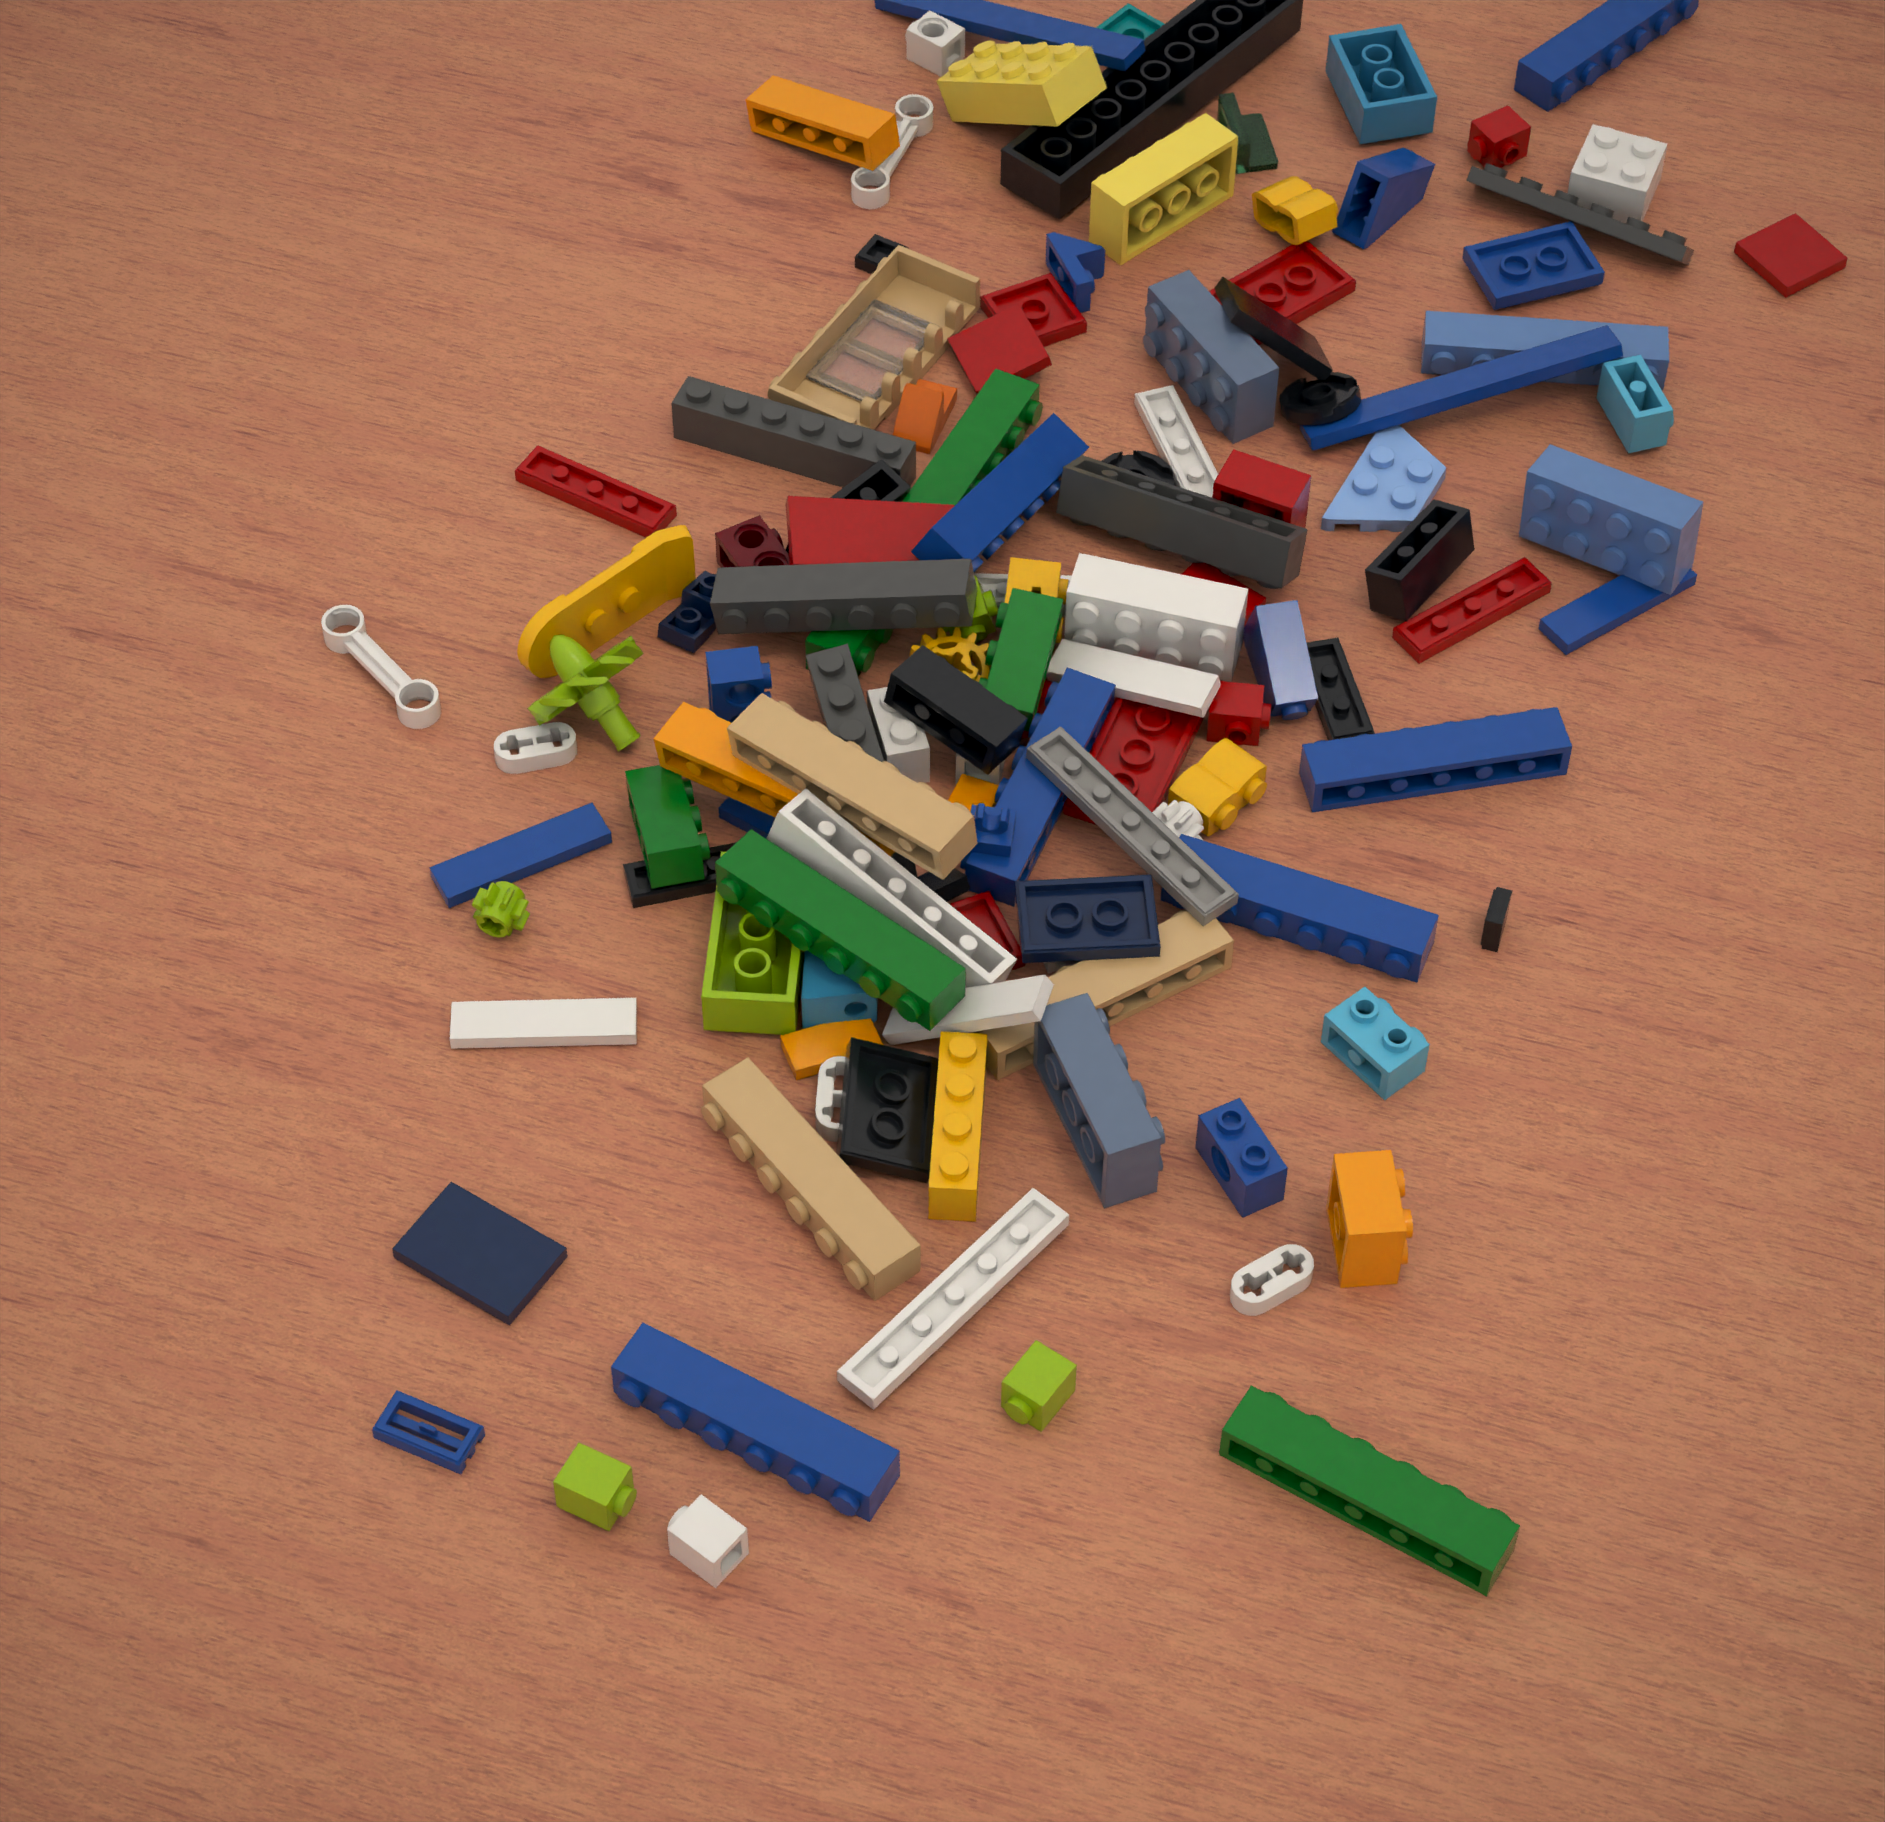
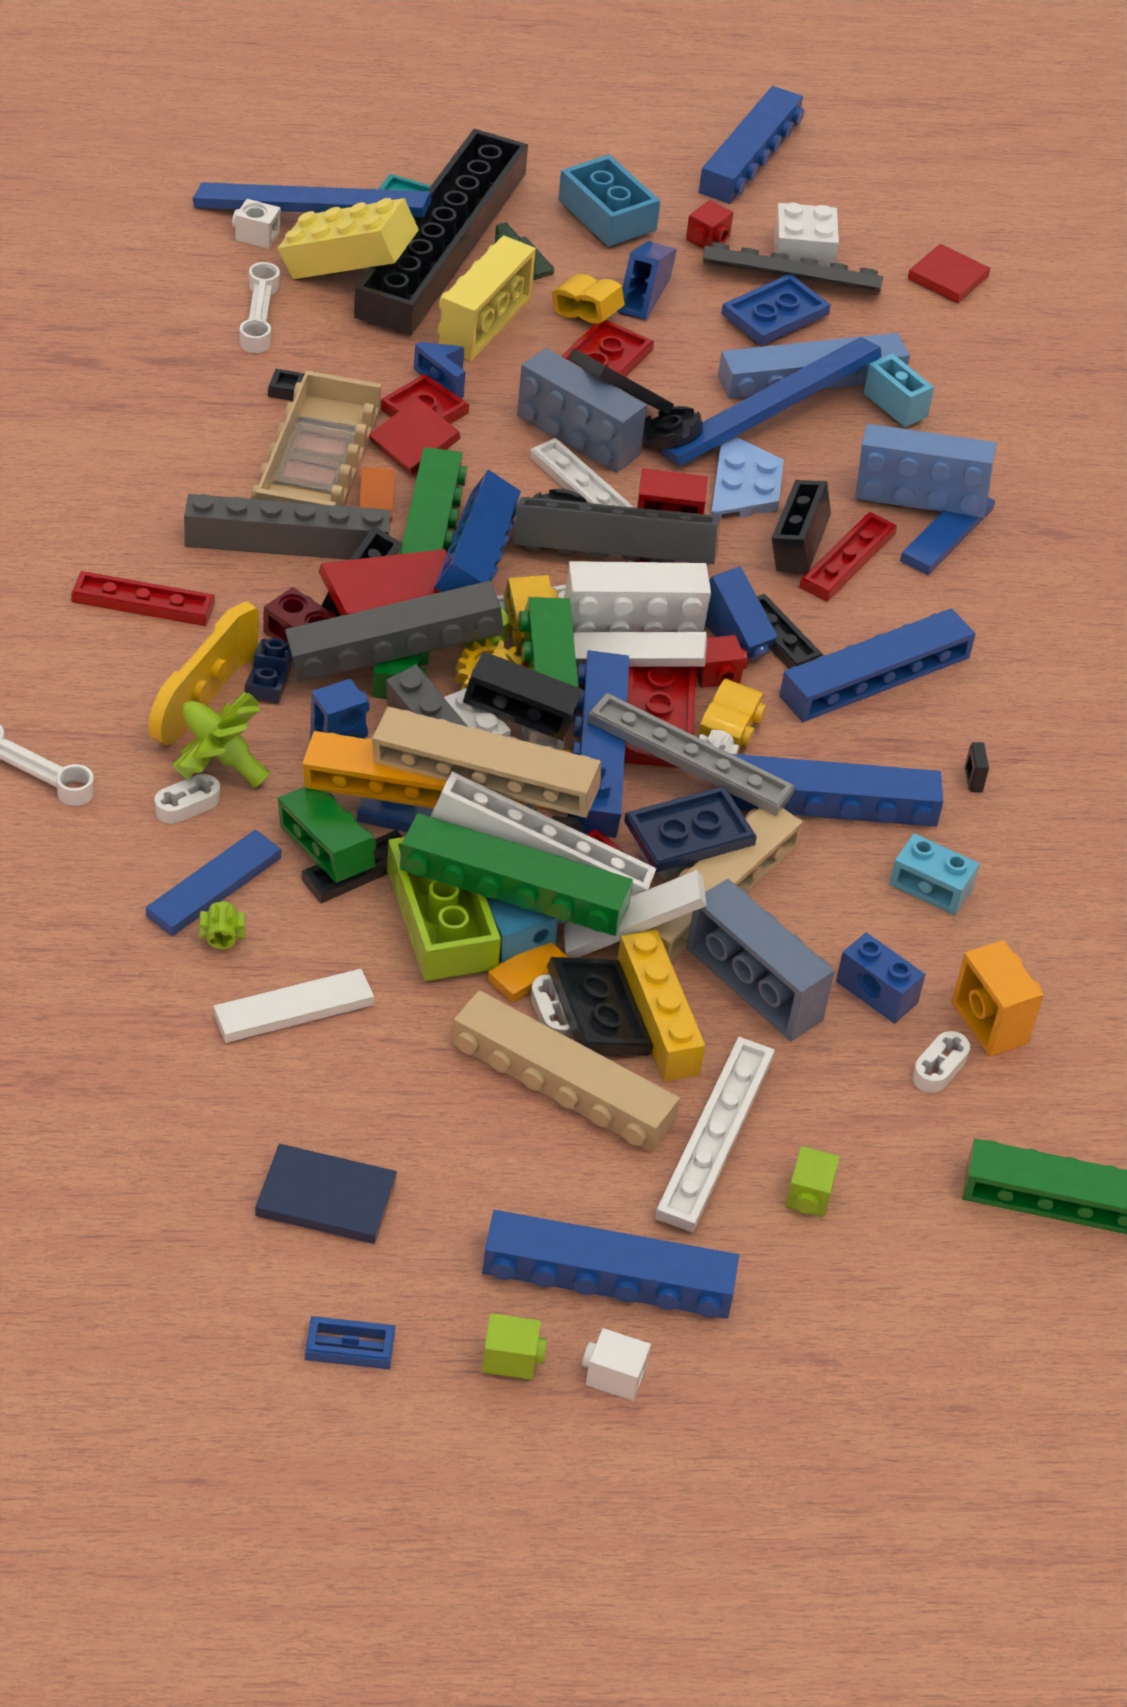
camera: 25 degrees left, 5 degrees down
(823, 122) = (200, 292): light orange brick -> none

